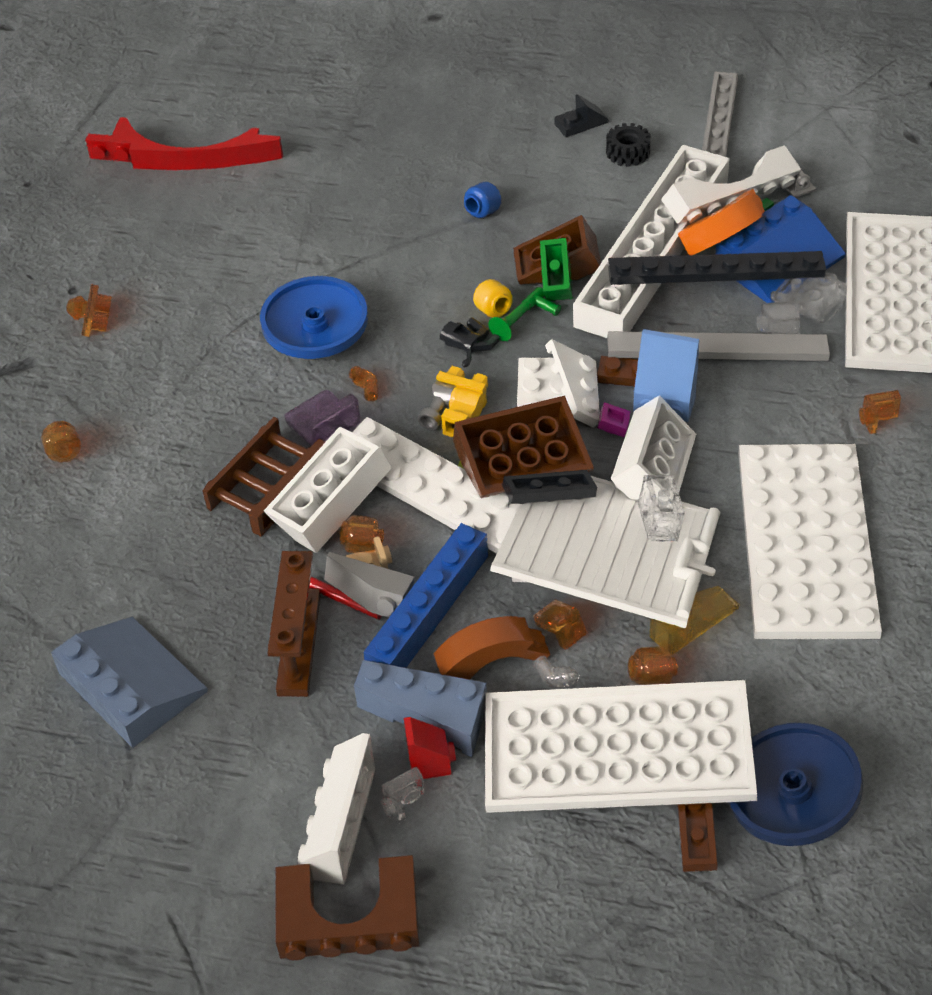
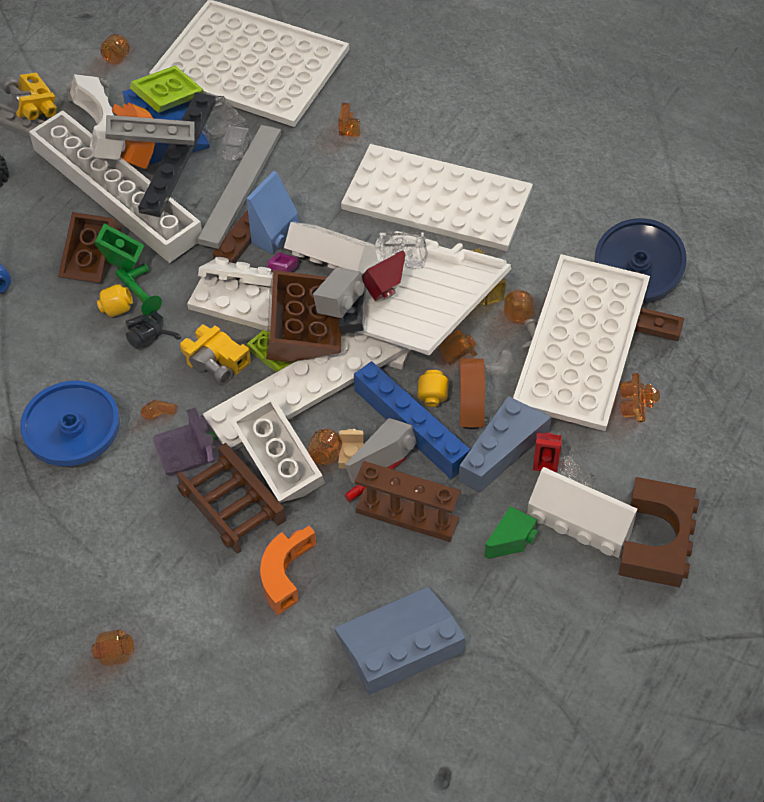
camera: 75 degrees left, 5 degrees up
(187, 539) = (278, 555): none -> orange arch
(296, 746) = (511, 534): none -> green slope
(482, 607) = (433, 388): none -> yellow head
(553, 460) = (338, 292): none -> light grey brick
(556, 837) = (640, 397): none -> clear orange hips
(603, 499) = (384, 277): none -> dark red slope
(714, 222) = (149, 130): none -> light grey plate
(741, 138) = (30, 98): none -> yellow hips
(815, 227) = (165, 88): none -> lime plate
(868, 172) = (115, 48): none -> clear orange head

